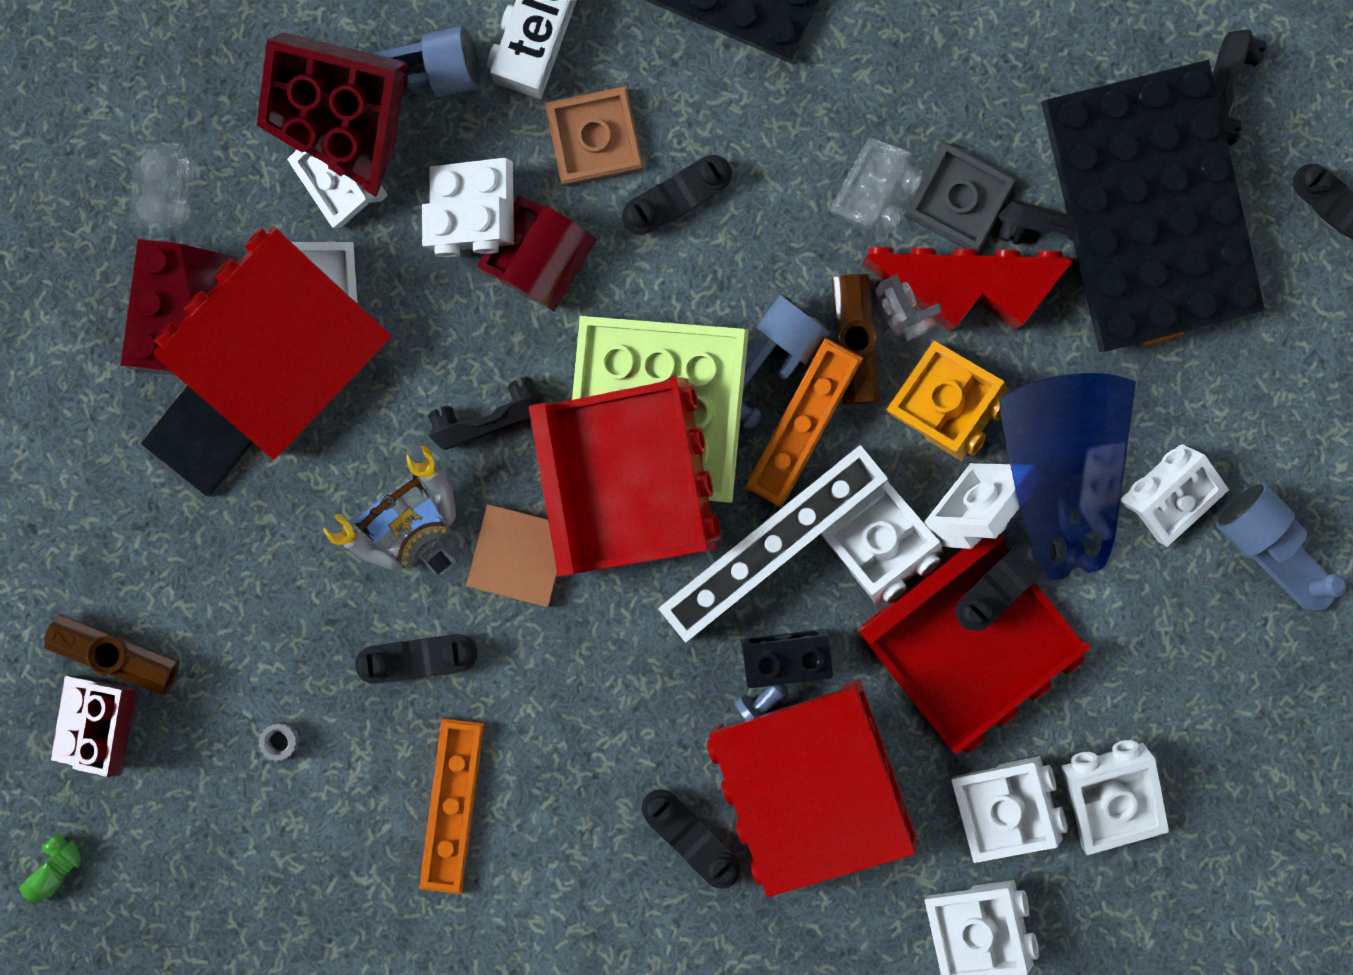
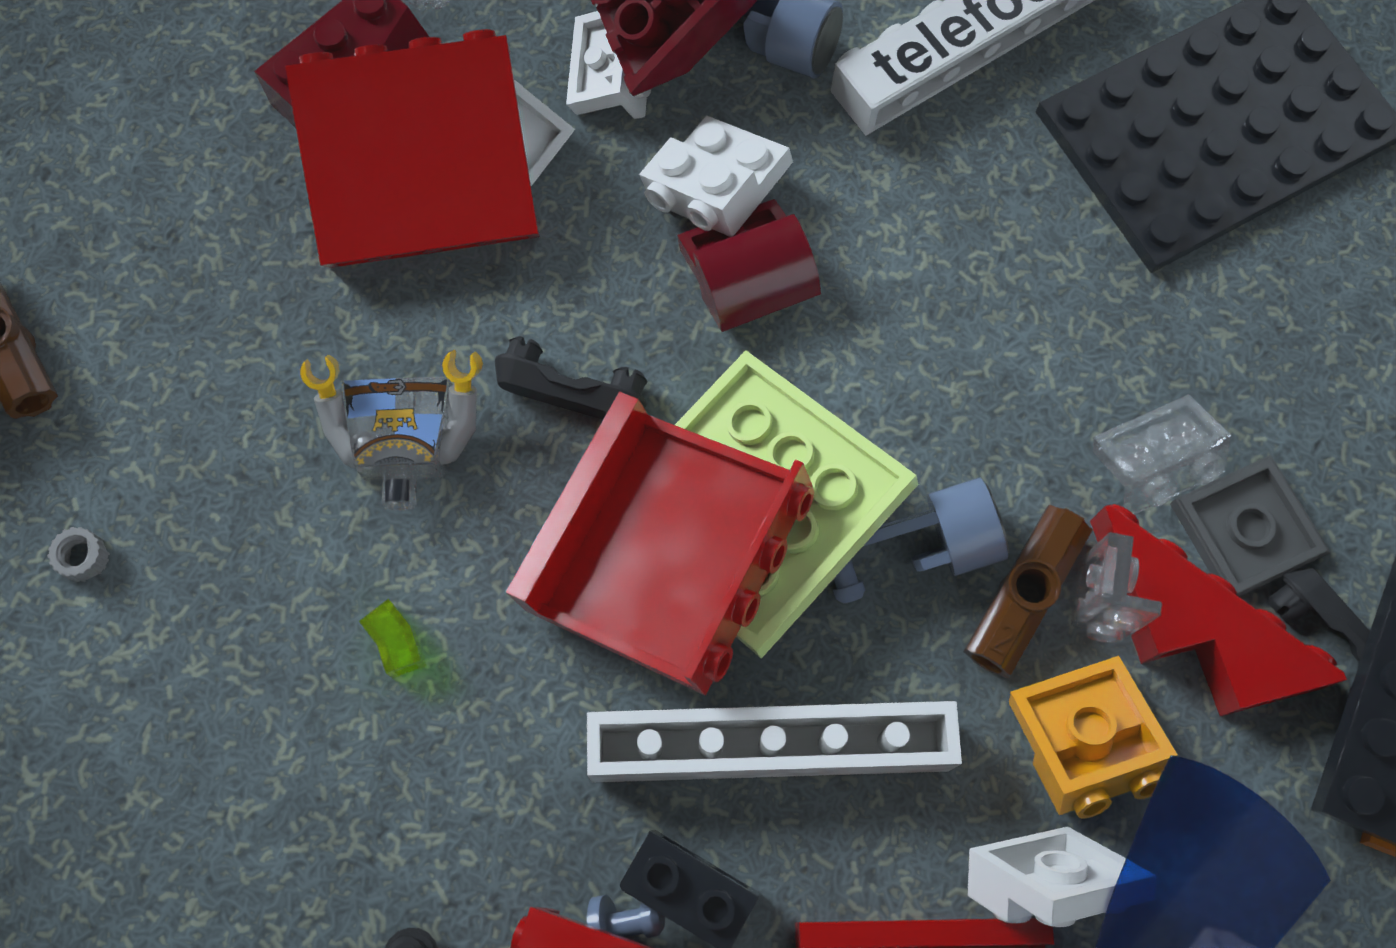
camera: 30 degrees right, 15 degrees down
(197, 442) = (264, 206): black tile -> none
(416, 658) = (289, 576): black piece -> none
(451, 806) = (188, 770): orange tile -> none
(508, 647) = (395, 640): none -> clear neon green piece
(514, 557) = (477, 548): nougat tile -> none
(594, 136) = (893, 202): nougat tile -> none
(677, 195) = (939, 312): black piece -> none
(803, 422) = (907, 634): orange tile -> none
(884, 544) = (901, 844): white plate -> none

